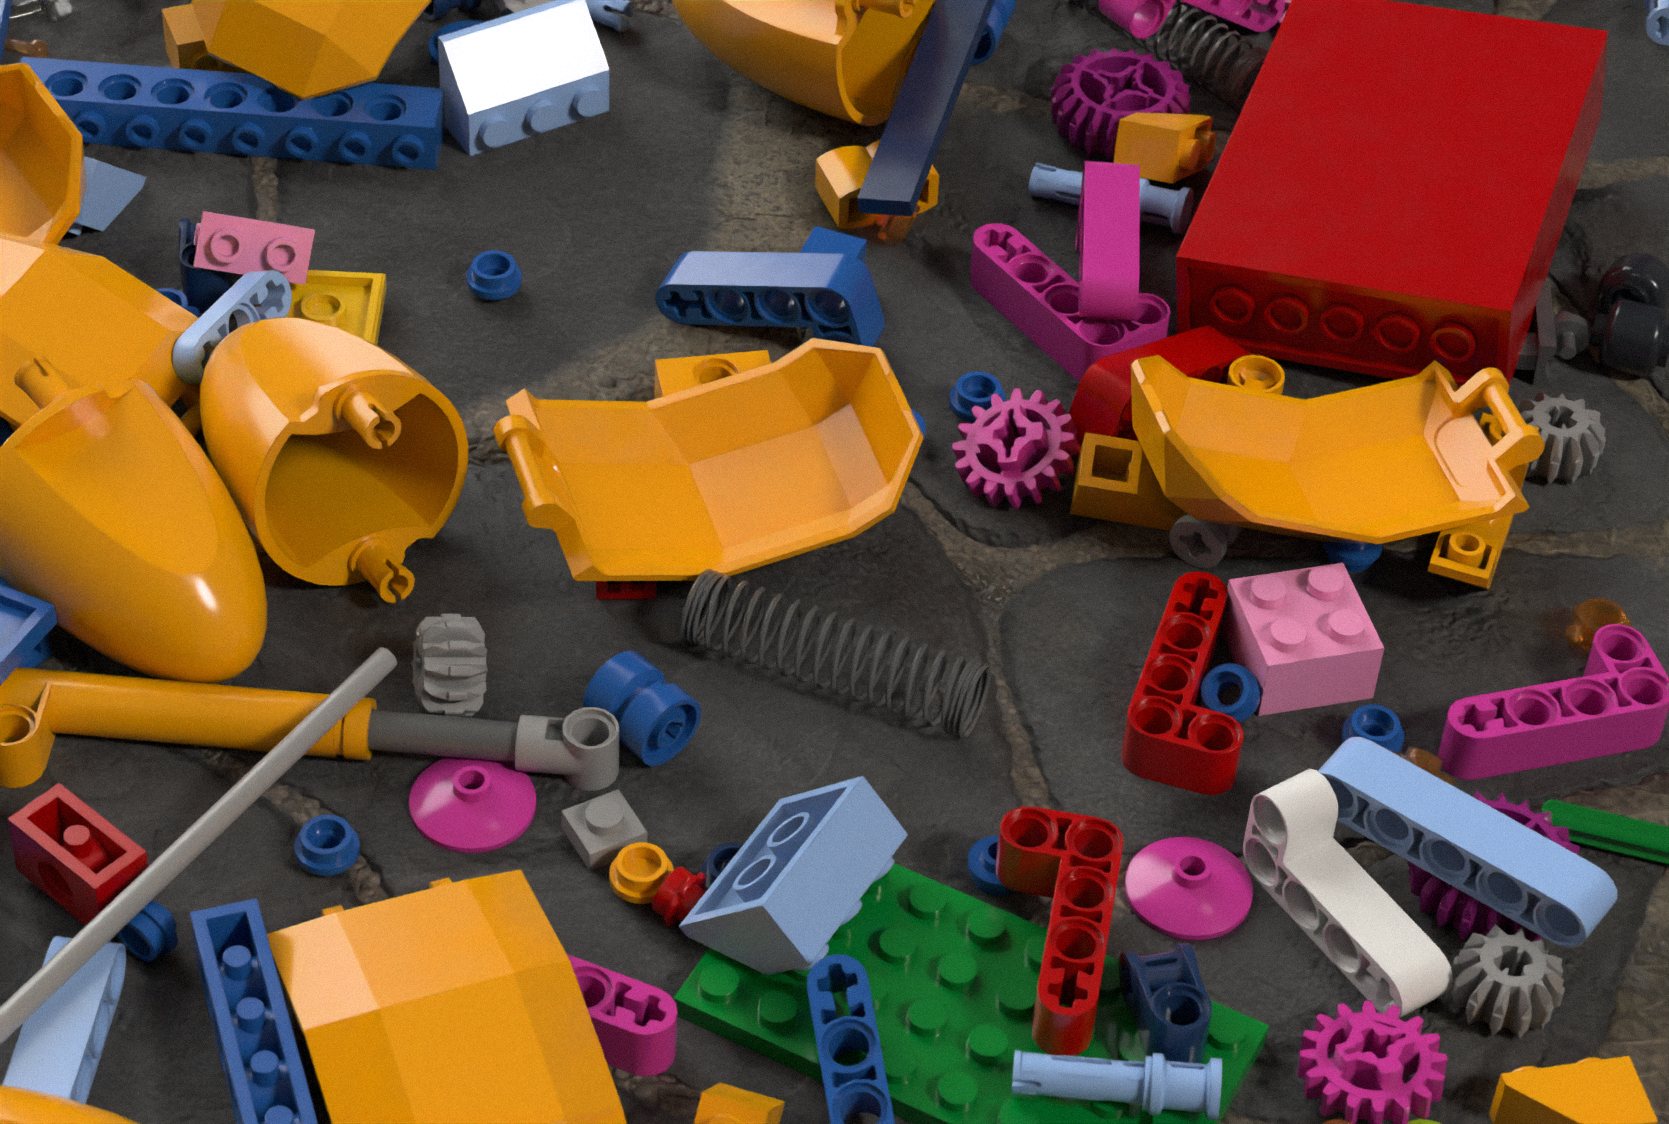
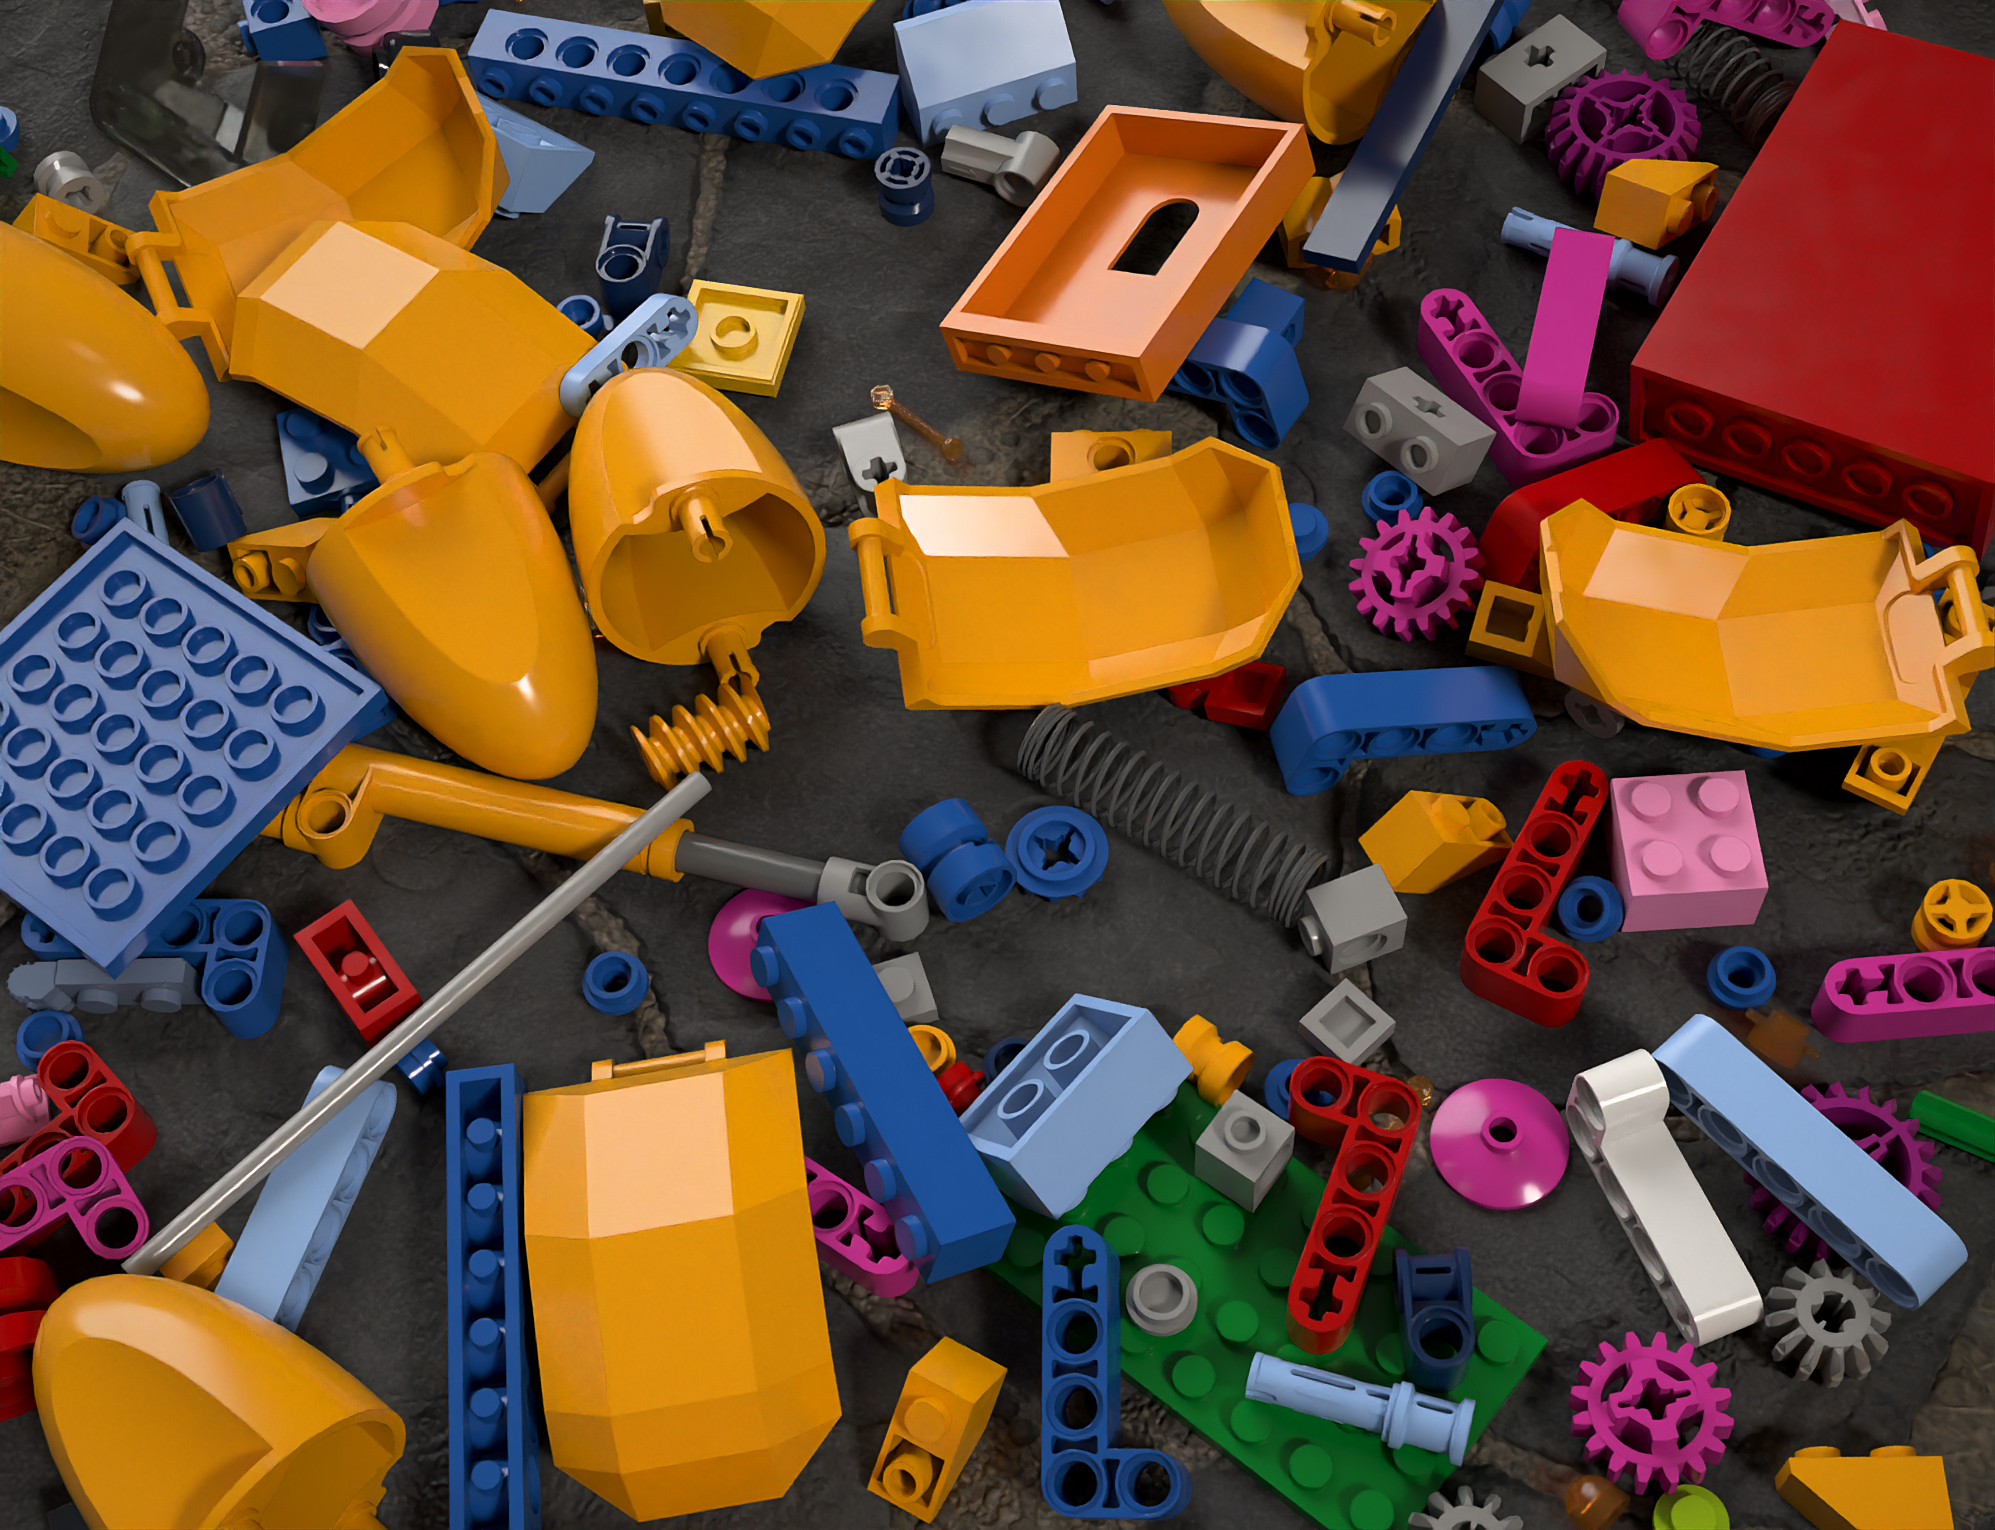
camera: 20 degrees right, 15 degrees up
(252, 245) = (666, 263): bright pink hinge -> none
(362, 627) = (705, 735): none -> light orange piece
(449, 665) = (769, 790): light grey gear -> none
(464, 182) = (904, 186): none -> dark blue wheel
(478, 357) = (883, 398): none -> clear orange hinge
(480, 398) = (869, 456): none -> light grey piece
(494, 275) = (915, 303): blue plate -> none
(566, 161) = (1014, 167): none -> light grey piece
(618, 887) = (881, 1093): none -> blue brick
(624, 243) = (1048, 295): none -> orange panel
(720, 683) = (1050, 829): none -> blue gear
(870, 558) = (1239, 697): none -> red plate
(917, 1024) = (1161, 1300): none -> light grey plate
(925, 847) = (1216, 1065): none -> light orange wheel
(968, 895) = (1244, 1151): none -> light grey brick
(992, 337) = (1419, 430): none -> light grey brick
(1019, 552) = (1395, 716): none -> blue beam
(1020, 721) = (1352, 919): none -> light grey brick
(1025, 64) = (1526, 79): none -> light grey brick
(1031, 790) = (1346, 1025): none -> light grey plate
(1079, 651) = (1436, 840): none -> light orange slope
(1542, 660) = (1960, 905): none -> light orange wheel

